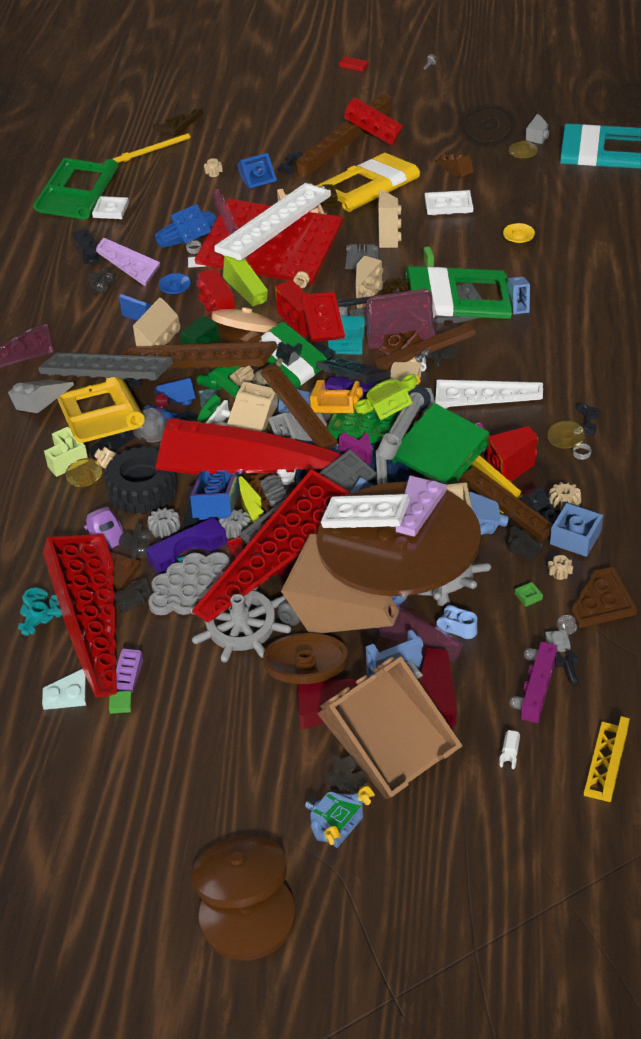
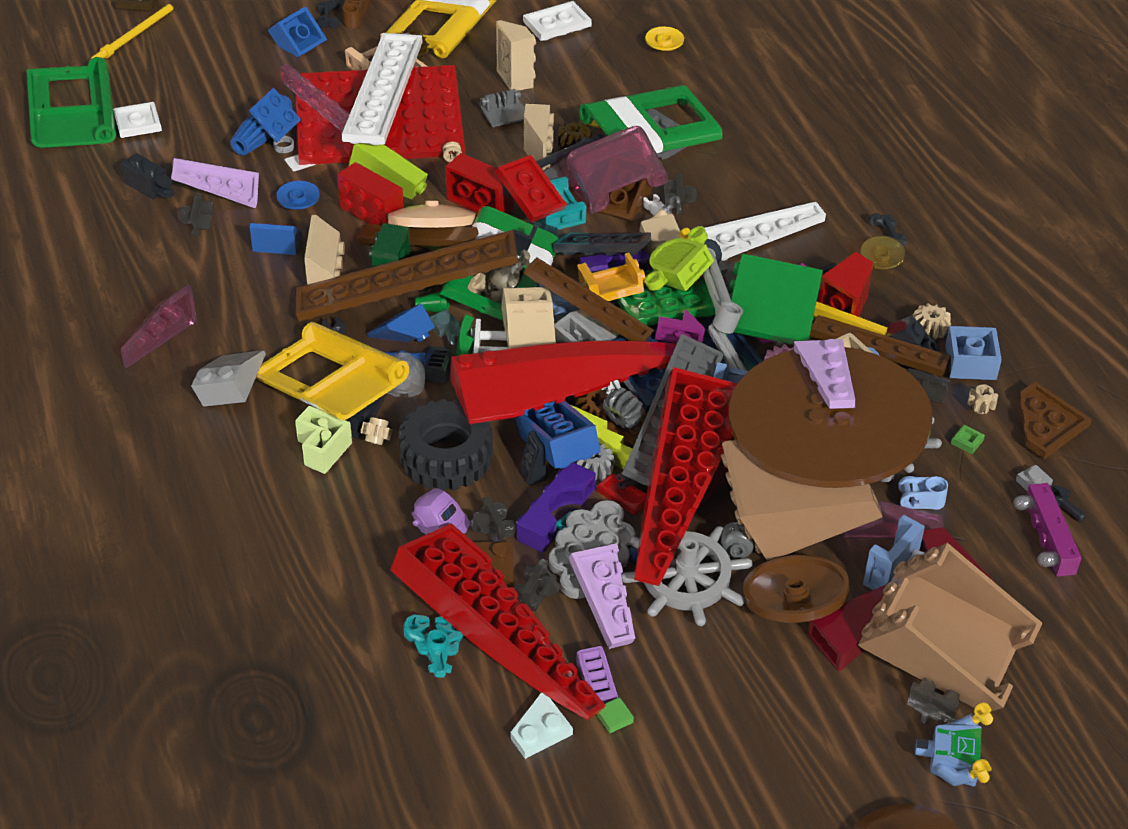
camera: 30 degrees left, 0 degrees up
(83, 472) = (361, 457): clear yellow dish -> none
(106, 365) = (296, 317): dark grey plate -> none
(162, 400) = (400, 341): dark red plate -> none
(164, 523) = (508, 487): light grey gear -> none
(172, 610) = (603, 587): none -> lavender wing
(213, 167) = (237, 40): tan gear -> none
(365, 511) = (783, 395): white plate -> none
(428, 257) = (583, 90): bright green tile -> none
(432, 344) = (661, 195): reddish brown tile -> none
(510, 748) = (1074, 611): white bar -> none
(519, 290) = (721, 105): medium blue torso -> none
(567, 623) = (1033, 457): clear bush -> none
(585, 456) = (912, 272): light grey axle -> none

